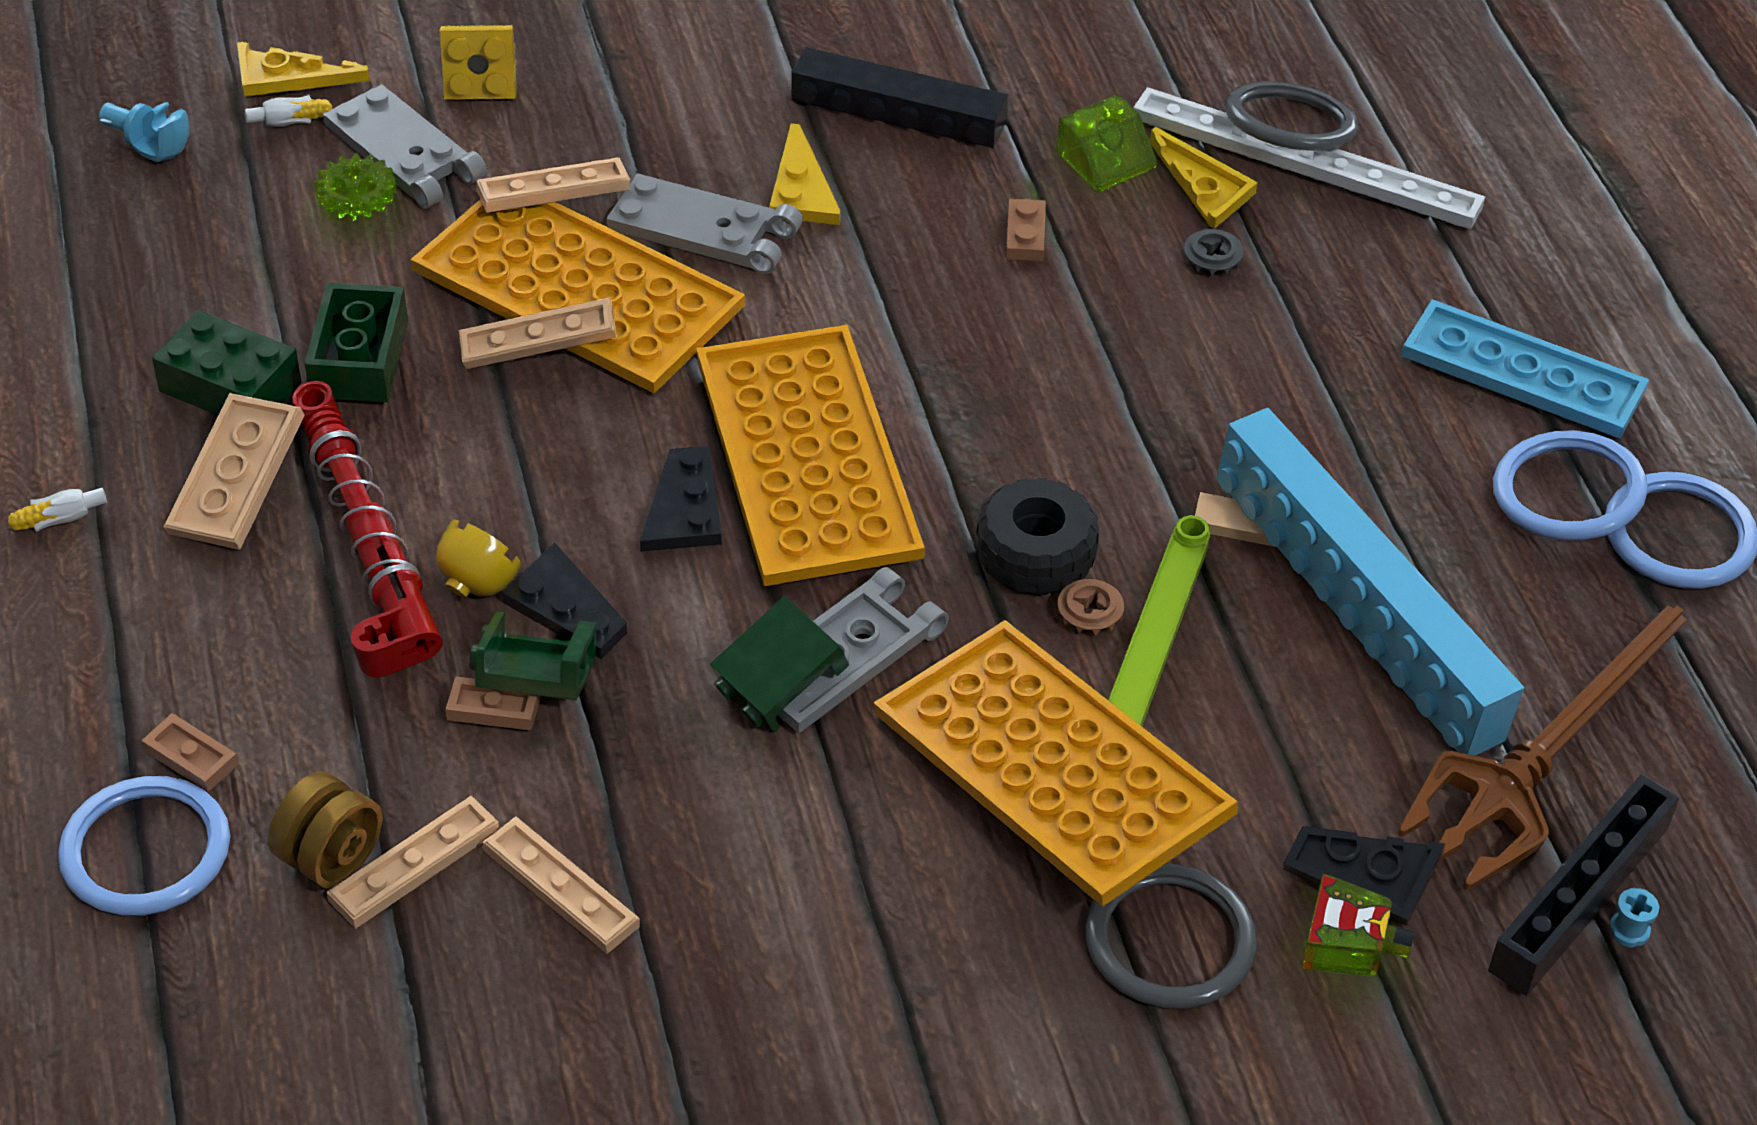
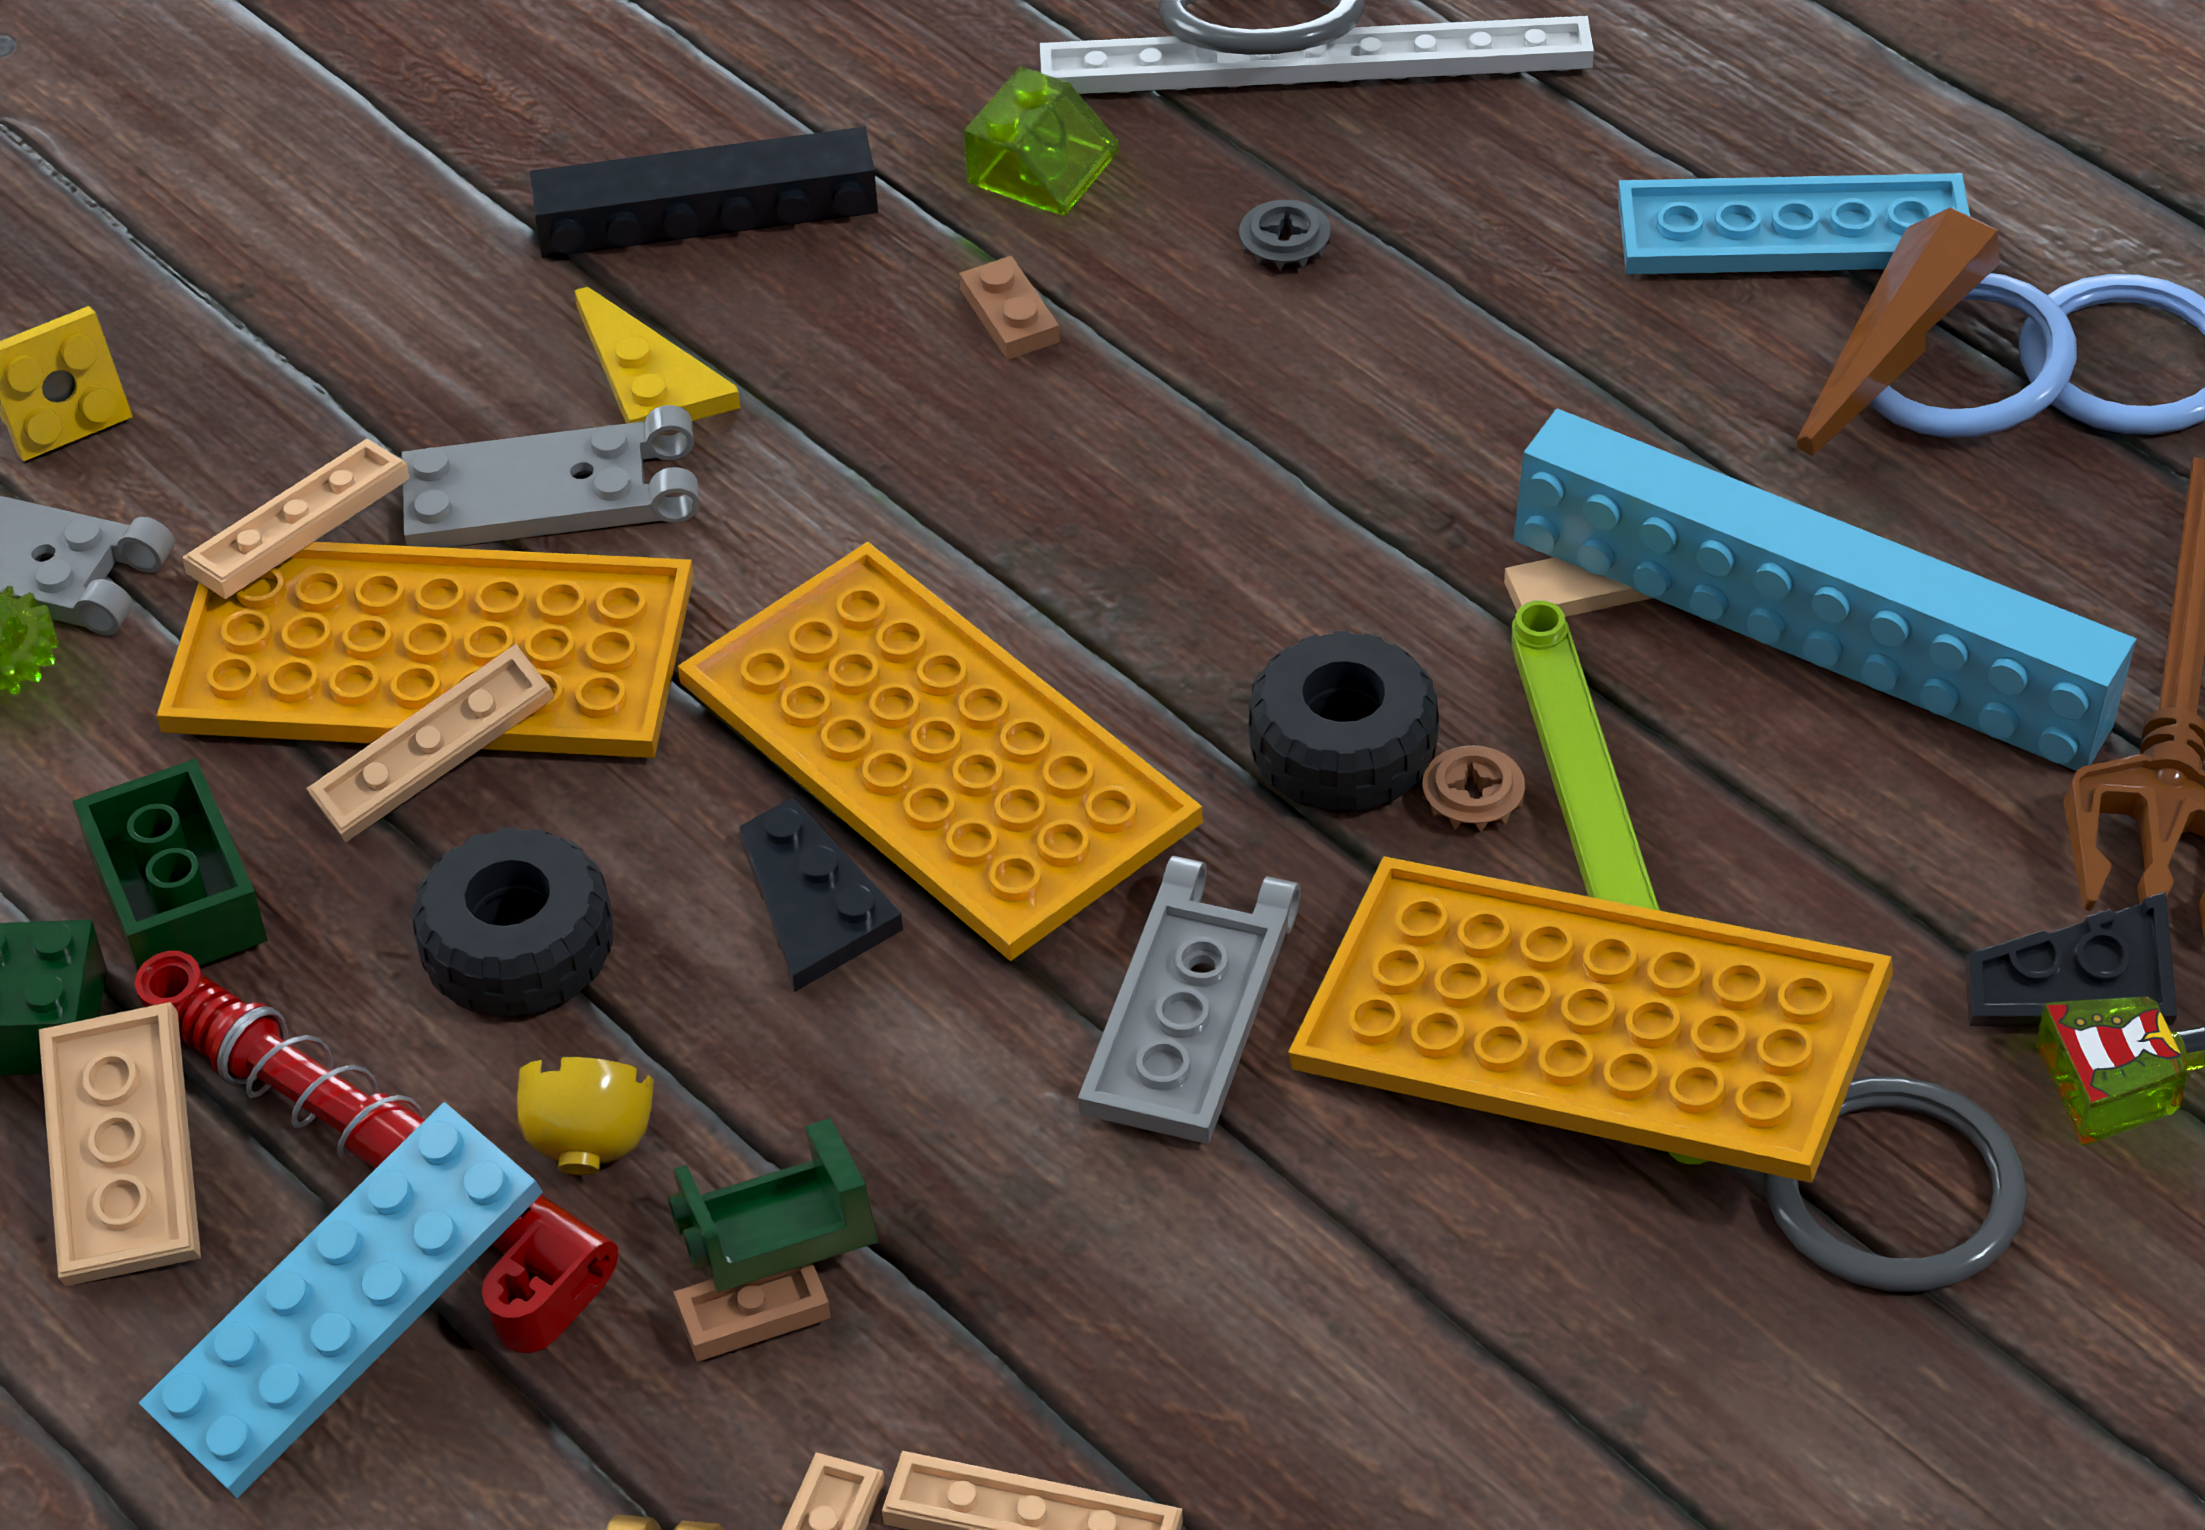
camera: 25 degrees left, 0 degrees up
(284, 599) = (340, 1299): none -> medium azure plate
(511, 446) = (521, 964): none -> black tyre
(560, 596) = (739, 1110): black wing -> none
(775, 662) = (1125, 1059): dark green panel -> none
(1208, 183) = (1214, 142): yellow wing -> none
(1577, 428) = (1922, 282): none -> dark orange wedge

